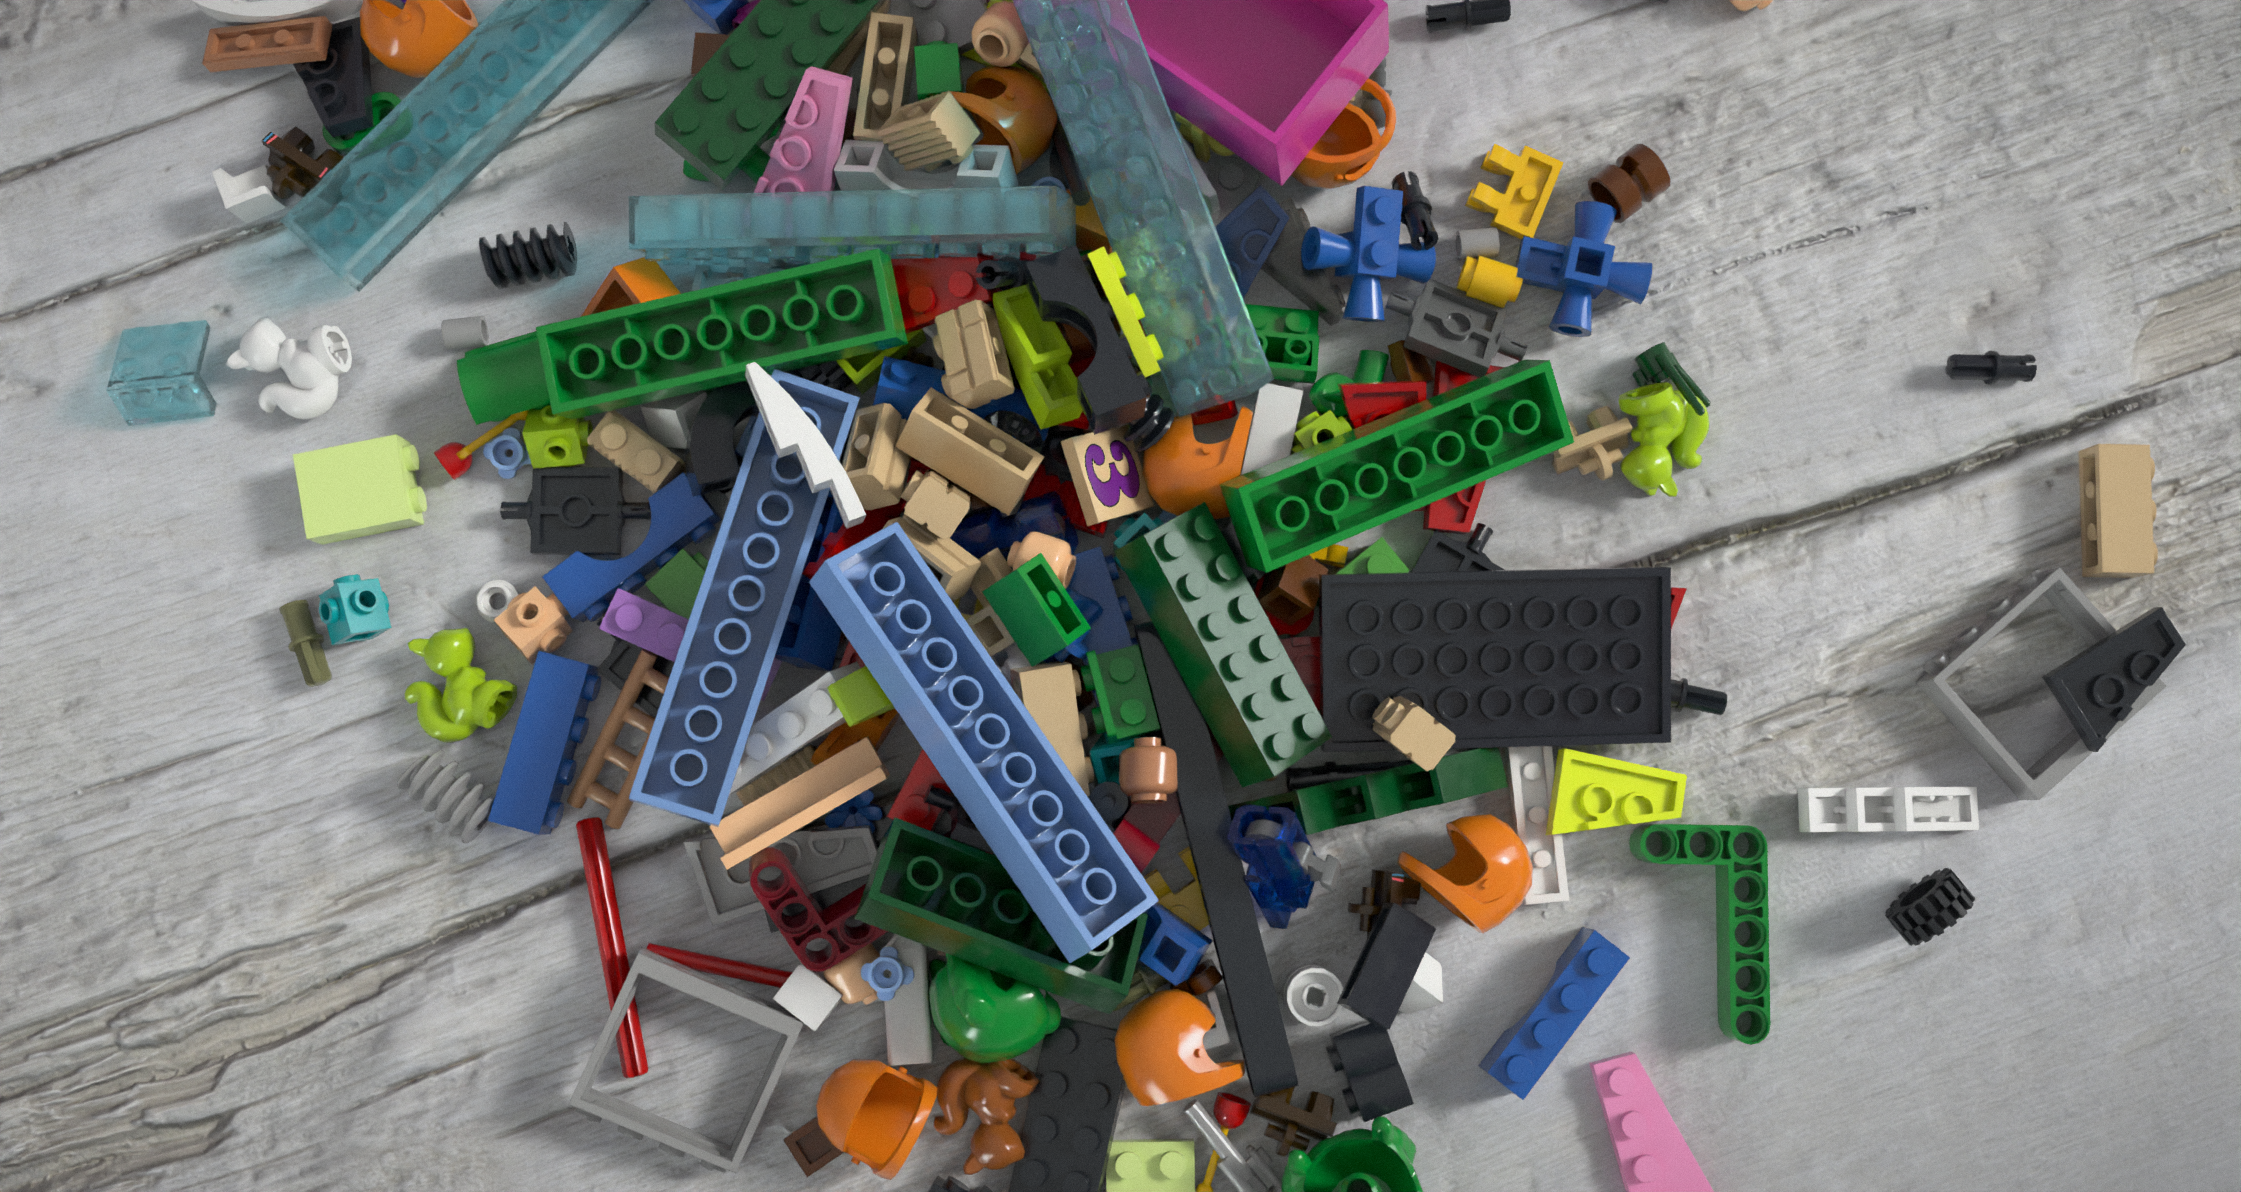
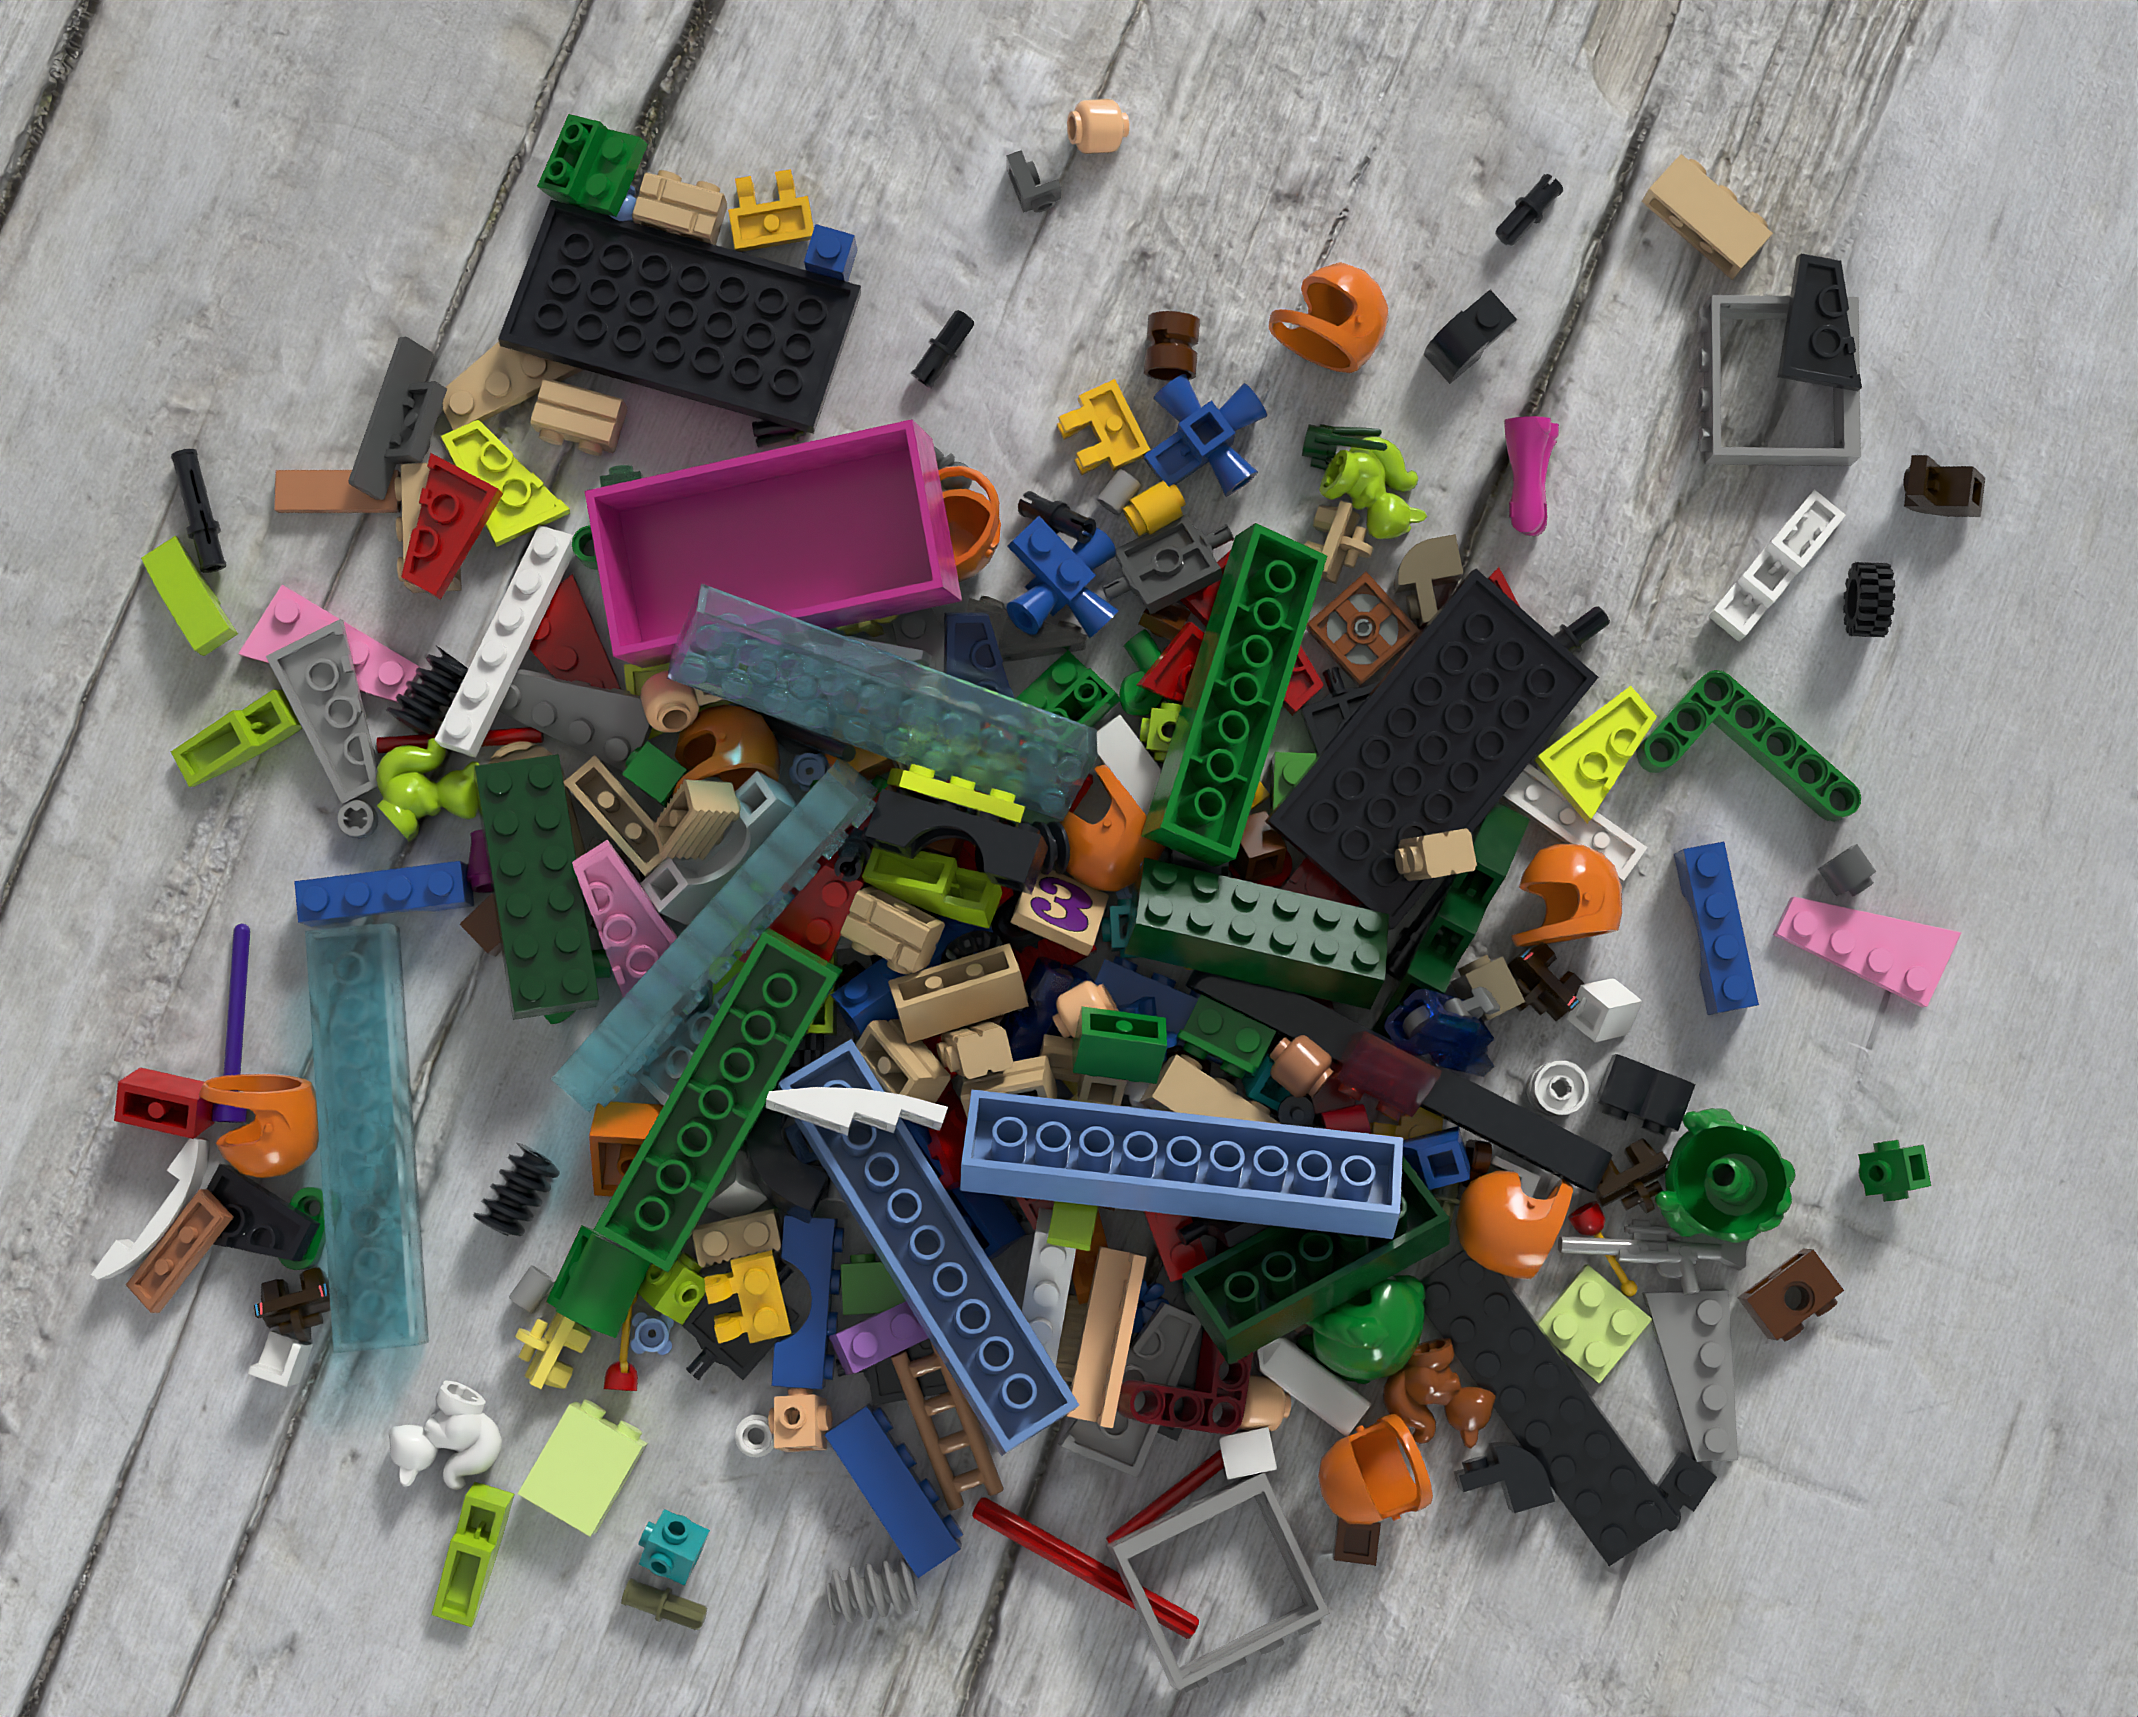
camera: 45 degrees left, 0 degrees up
(160, 375) = (362, 1541): clear light blue bracket -> none
(223, 462) = (472, 1553): none -> lime slope
(413, 395) = (545, 1366): none -> light yellow hips
(467, 696) = (811, 1518): lime animal -> none
(602, 507) = (759, 1295): none -> yellow plate
(885, 986) = (1290, 1389): light blue plate -> none
(1198, 844) = (1384, 1075): none -> clear red slope
(1355, 866) = (1494, 977): none -> dark tan brick
(1387, 965) = (1582, 1017): black piece -> none
(1540, 524) = (1362, 629): none -> dark orange piece
(1634, 530) = (1425, 566): none -> dark tan brick
(1694, 1080) = (1848, 872): none -> dark grey plate
(1769, 296) = (1342, 320): none -> orange piece
(1805, 528) = (1529, 450): none -> dark pink piece
(1846, 402) = (1468, 335): none -> black brick
(2072, 890) = (1943, 489): none -> dark brown brick

